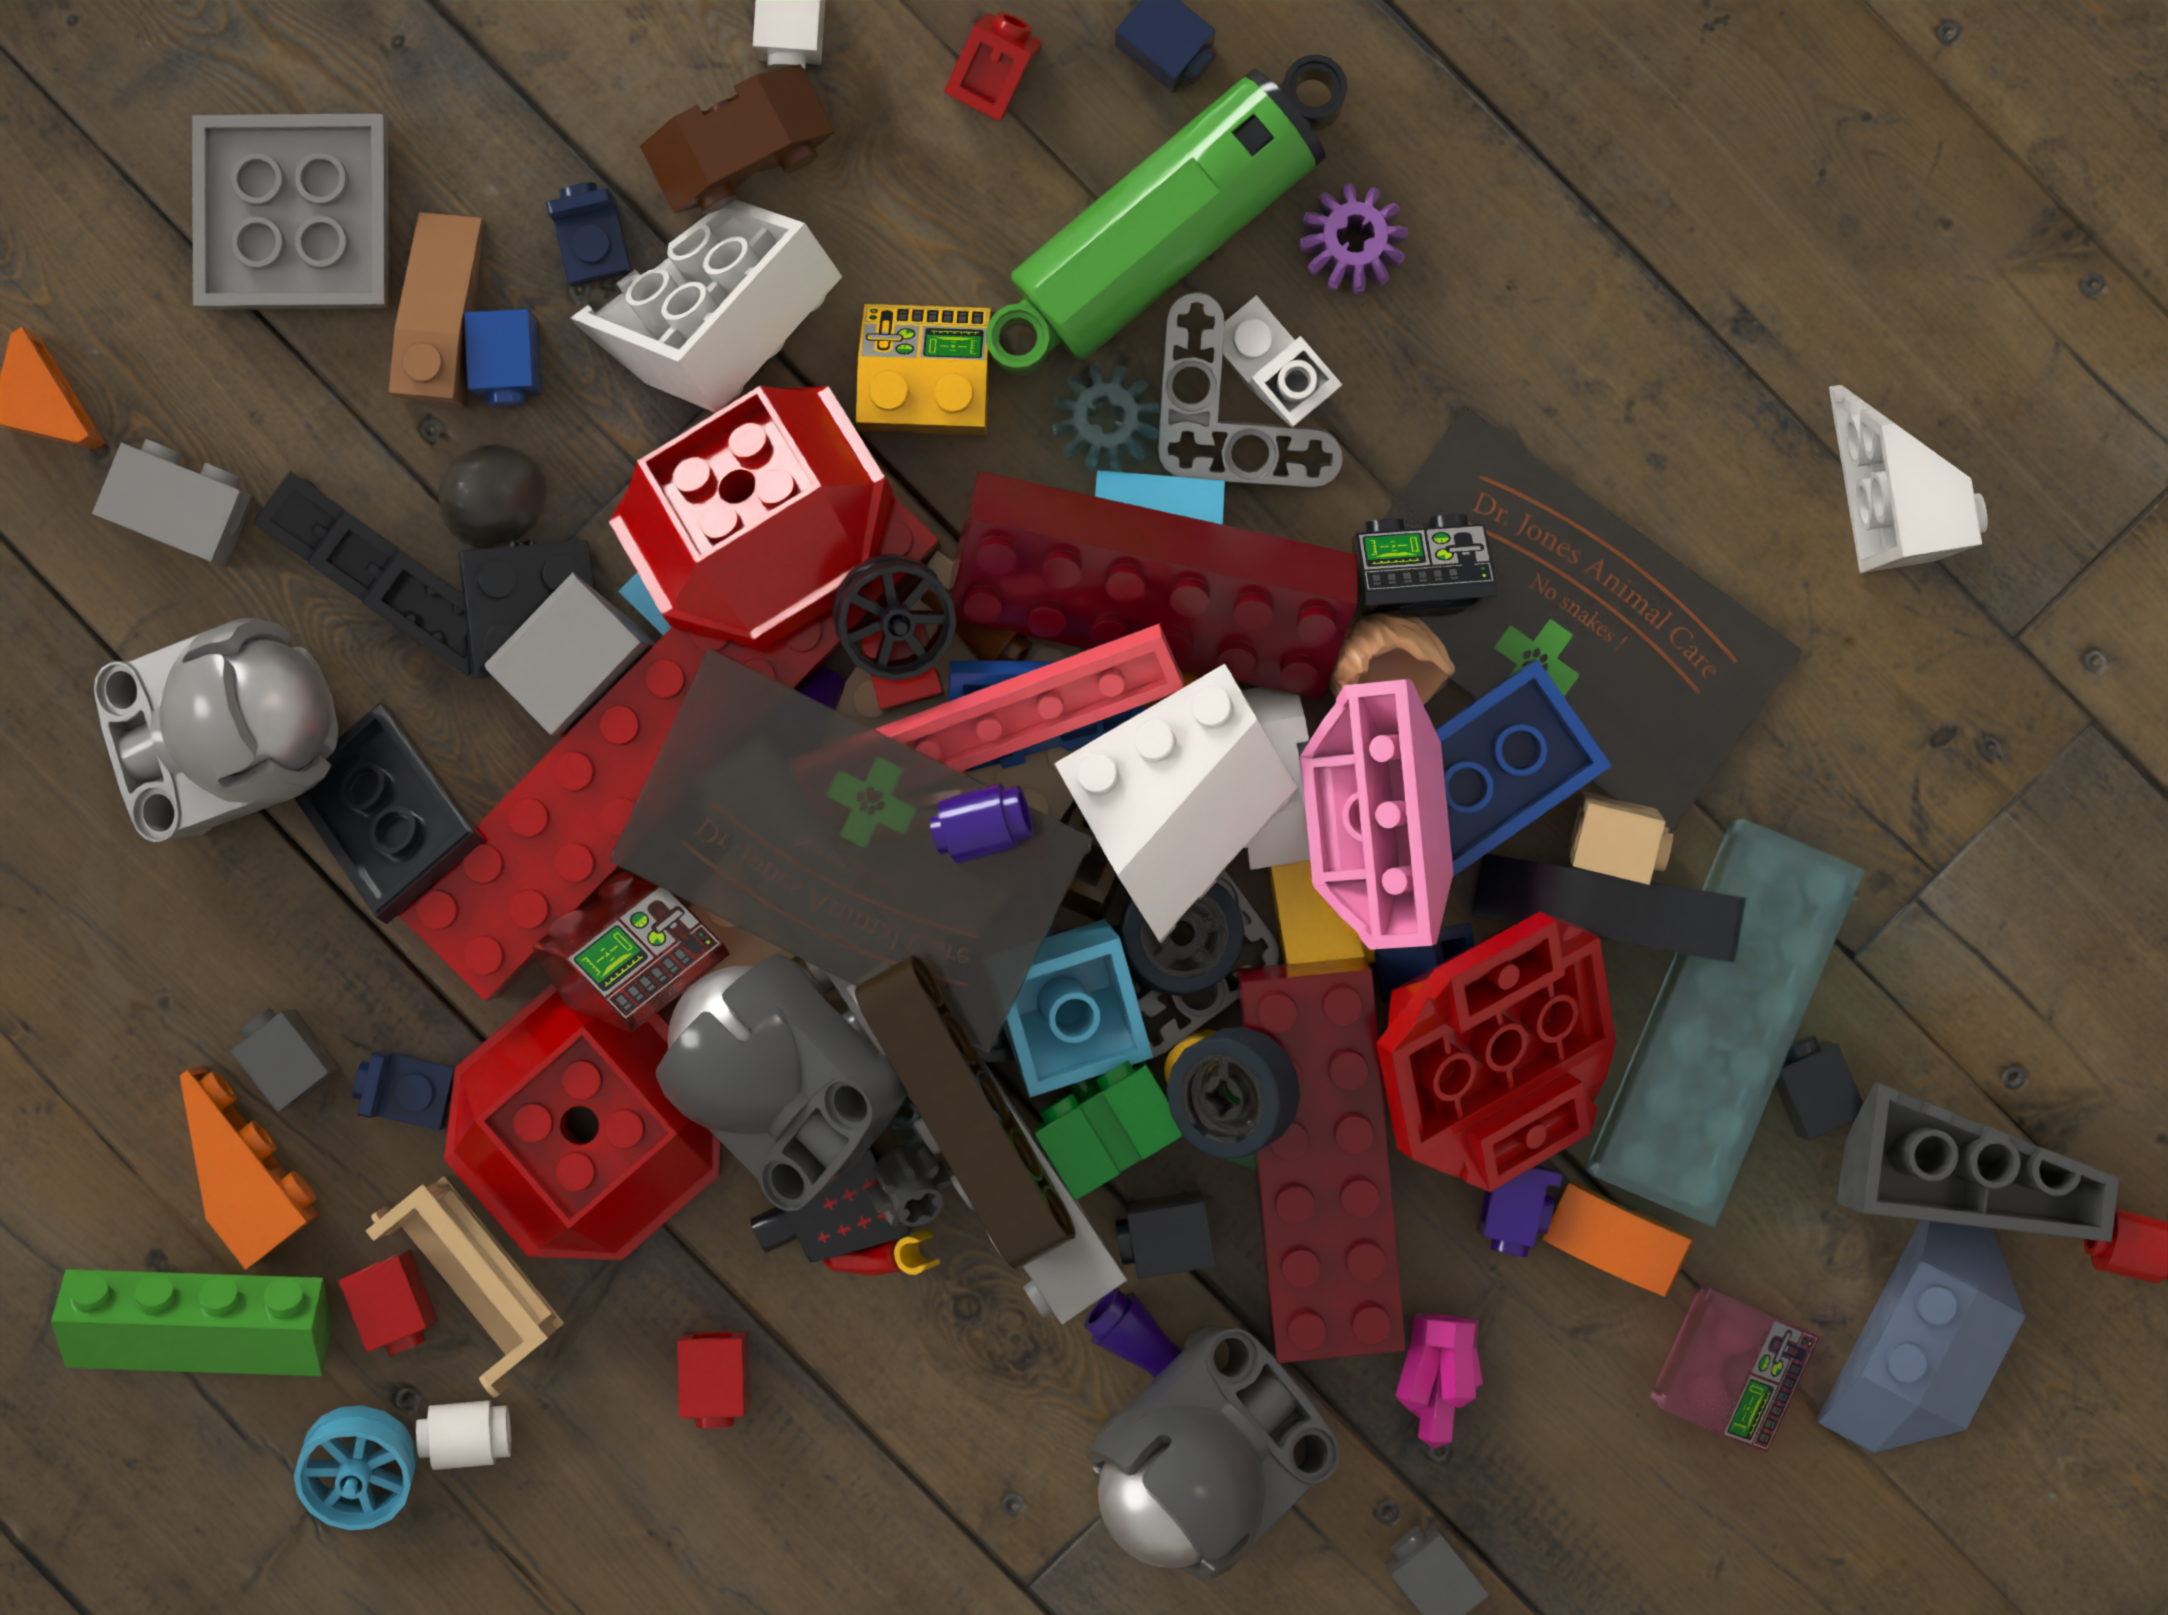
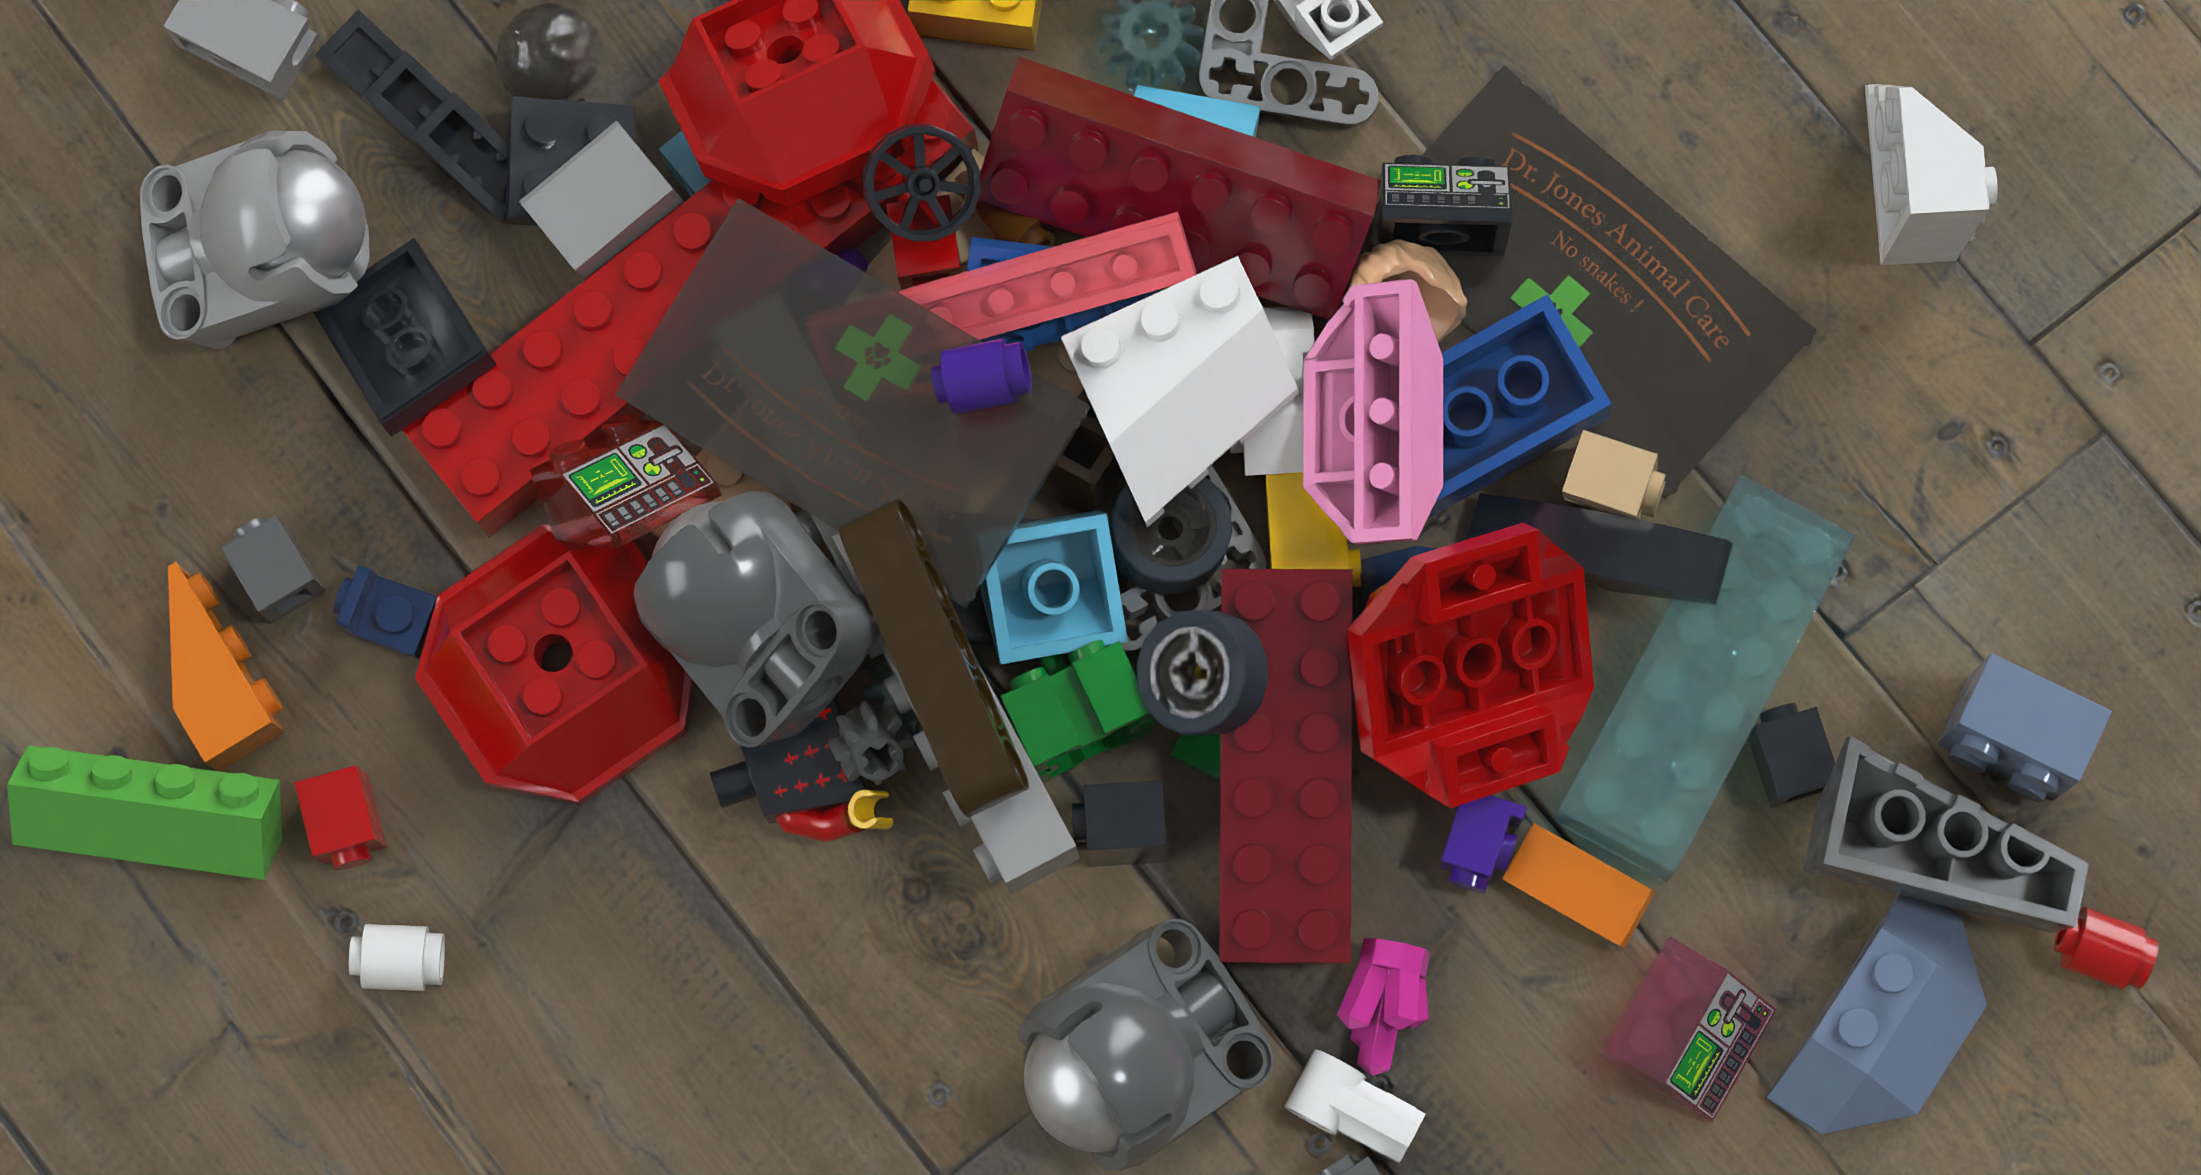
camera: 15 degrees right, 10 degrees down
(355, 1468) = (285, 975): medium azure wheel -> none
(475, 1270) = (425, 789): tan piece -> none
(713, 1377) = (653, 925): red brick -> none
(1130, 1332) = (1075, 925): dark purple cone -> none
(1405, 1474) = (1342, 1101): none -> white piece
(2039, 1041) = (2023, 729): none -> sand blue brick

